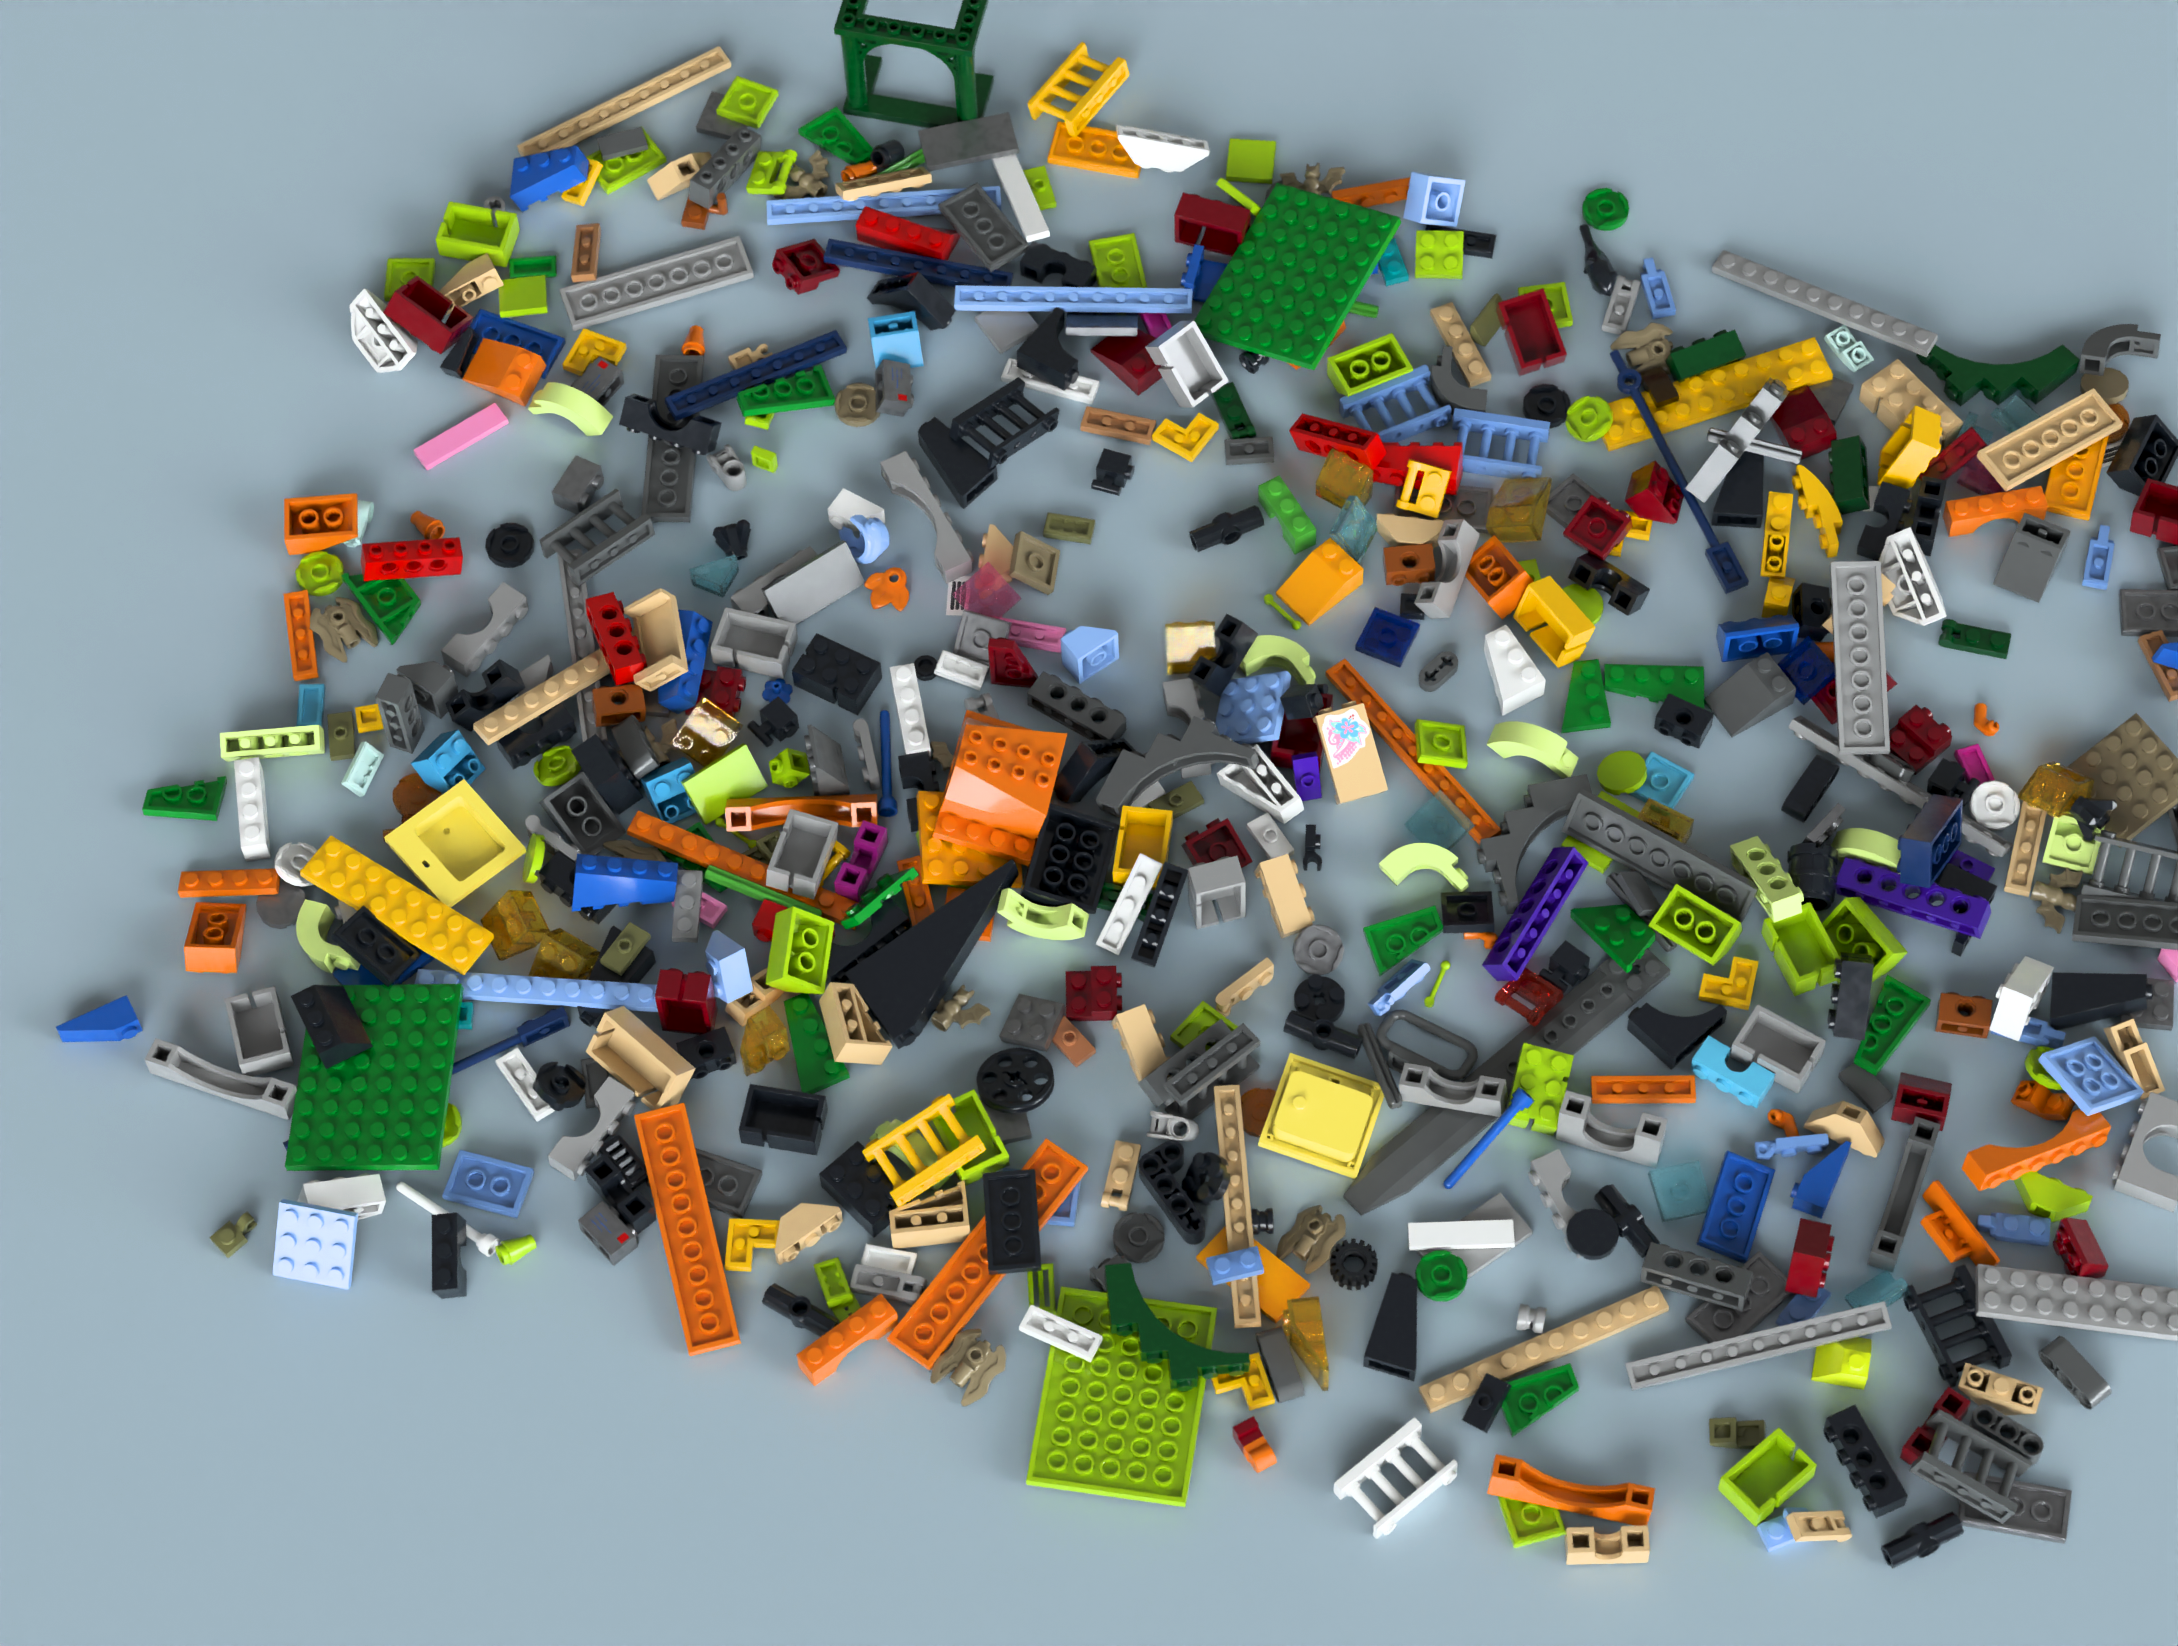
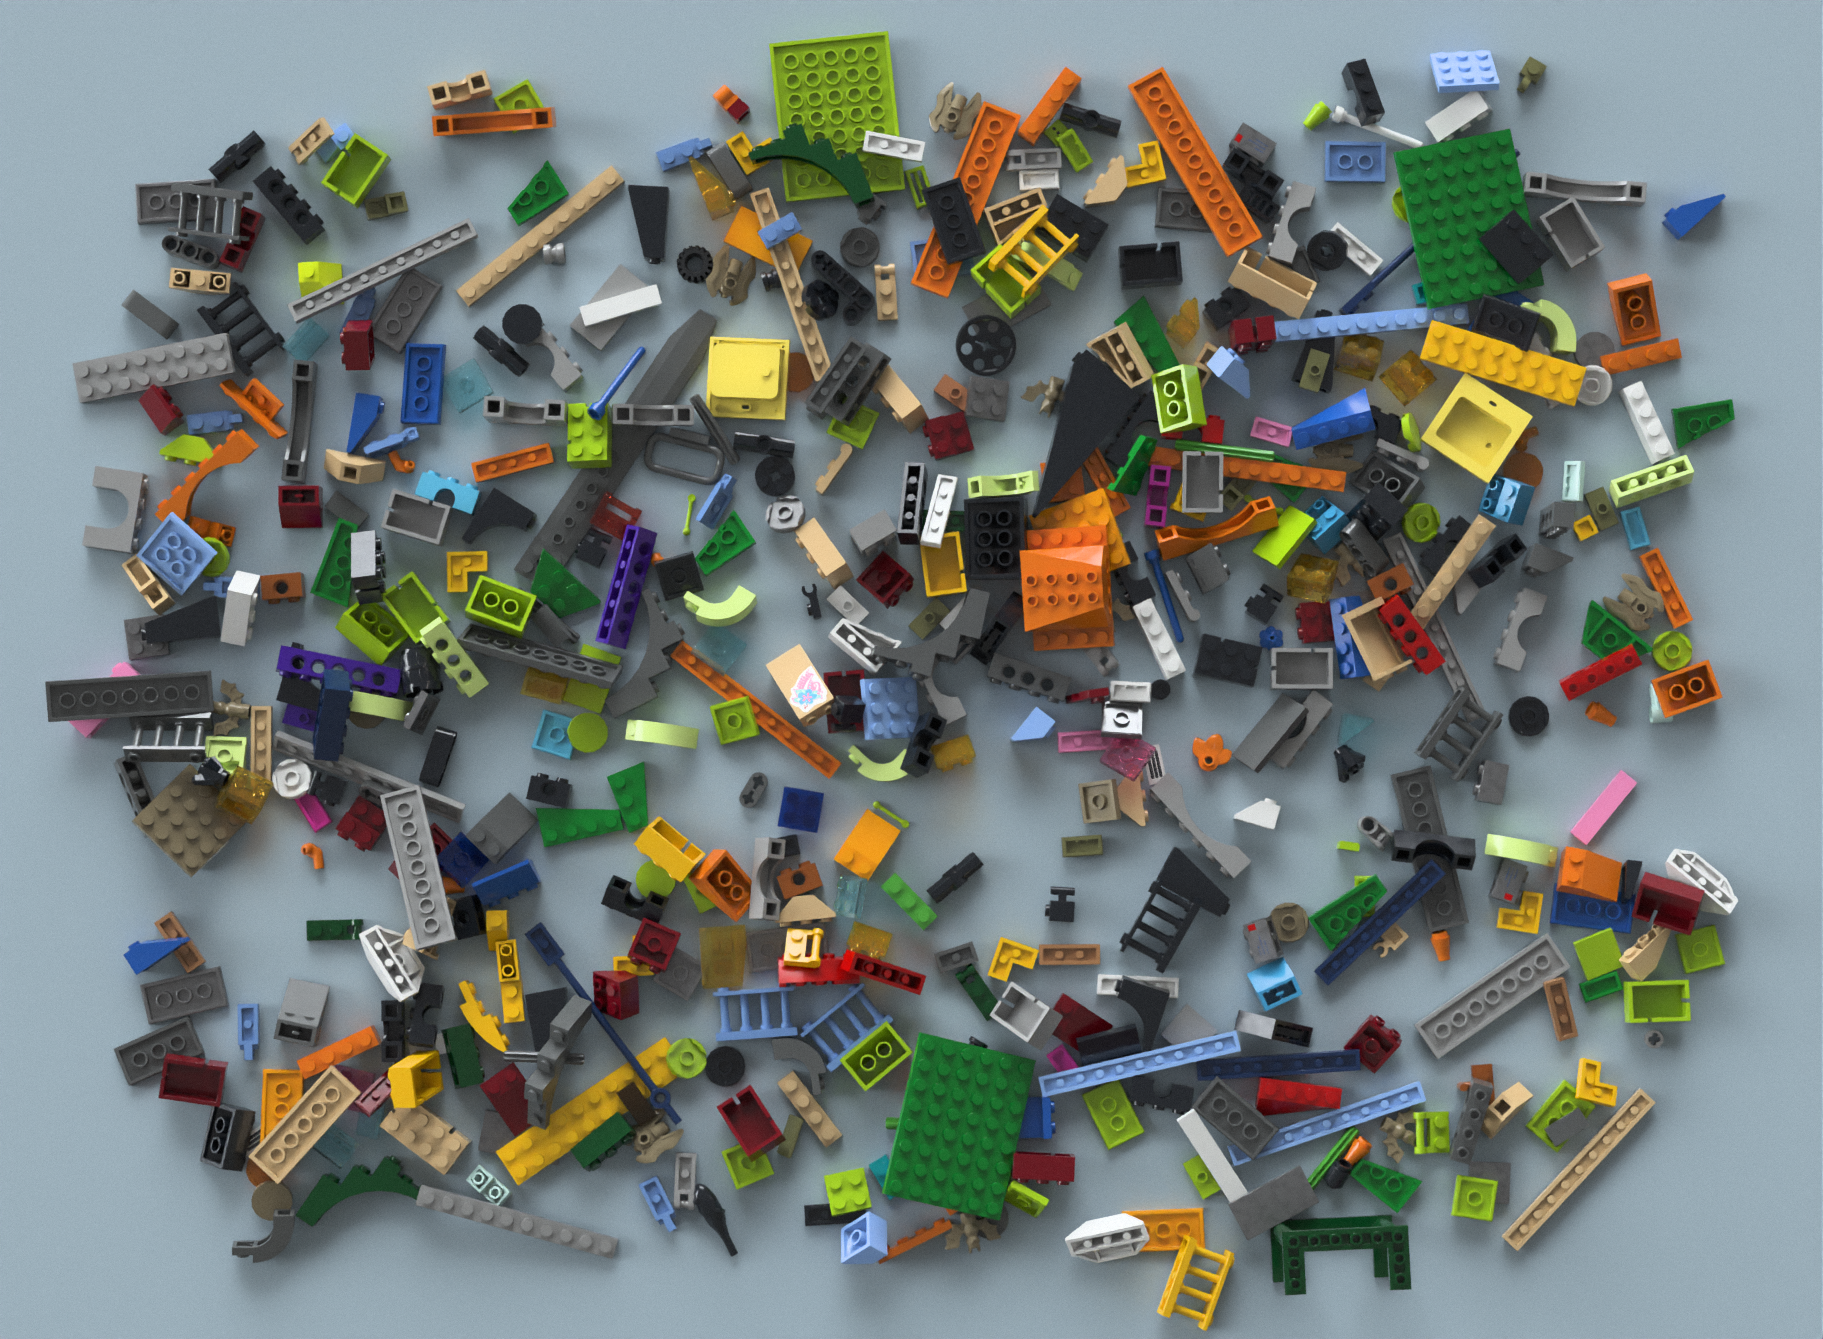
camera: 160 degrees right, 25 degrees up
(546, 173) = (1619, 1073): blue wedge -> none
(687, 906) = (1279, 424): light grey plate -> none
(789, 768) = (1239, 564): lime brick -> none
(872, 539) = (1241, 787): light blue helmet -> none
(877, 184) = (1332, 1140): tan plate -> none
(1168, 1127) = (857, 331): light grey piece -> none
(1251, 161) = (1030, 1251): lime tile -> none
(1306, 776) = (831, 659): dark purple plate -> none
(1333, 1404) = (678, 154): none -> medium blue hinge
(1390, 1452) = (631, 122): white fence -> none
(1441, 1275) = (628, 269): green tile -> none
(1486, 1403) = (571, 178): black plate -> none
(1512, 670) = (693, 799): white wedge -> none
(1605, 209) = (720, 1278): green tile -> none
(1706, 1286) = (471, 312): dark grey brick -> none

